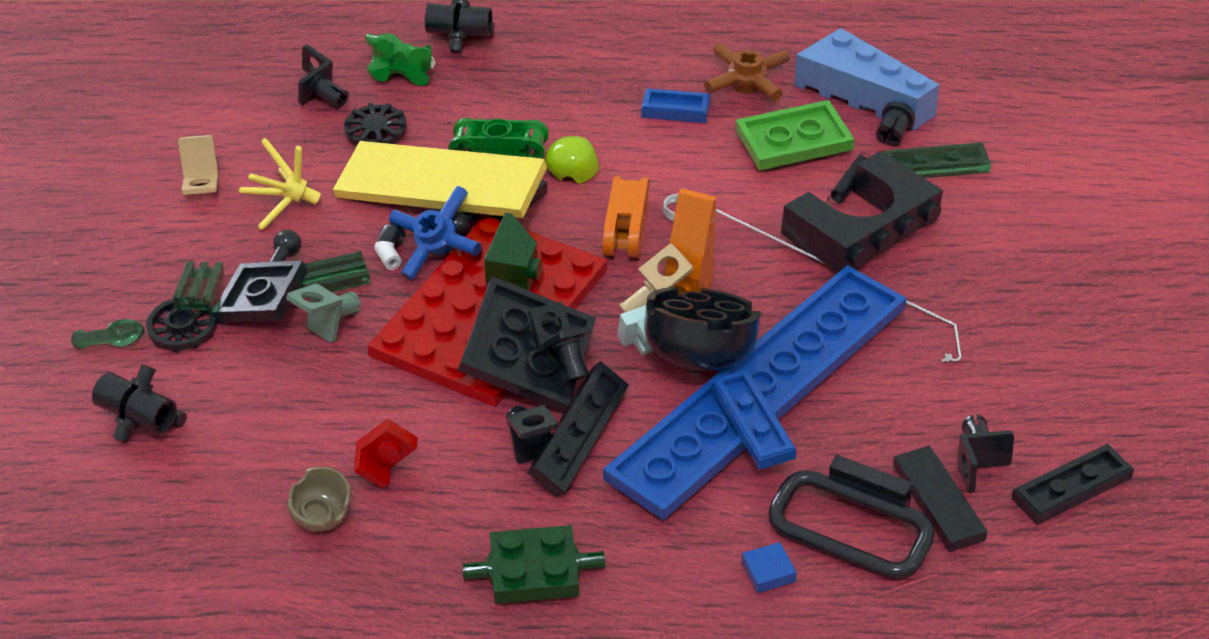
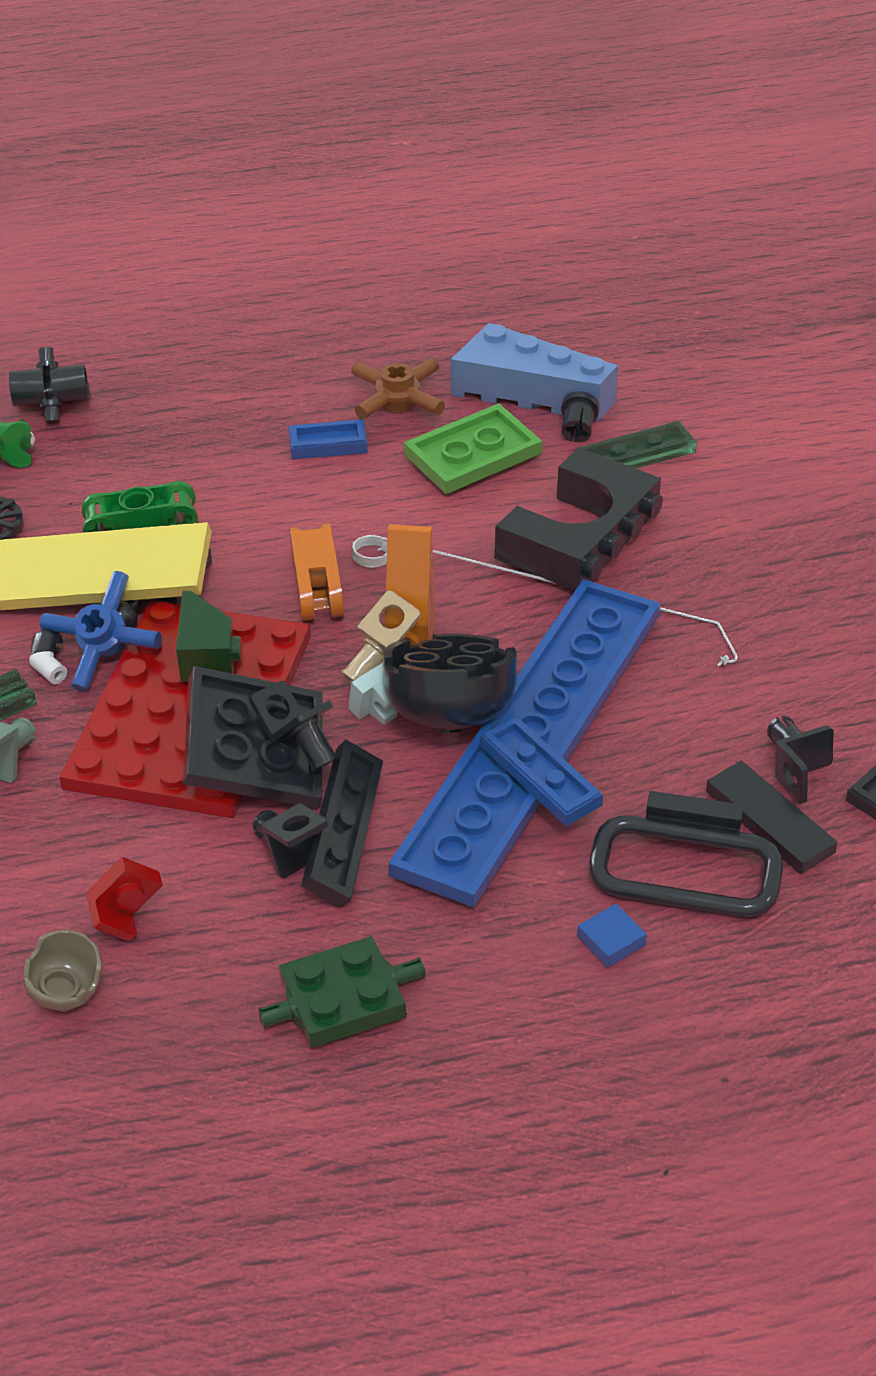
camera: 15 degrees left, 0 degrees up
(572, 158) = (232, 517): lime hair -> none
(846, 183) = (548, 486): black piece -> none

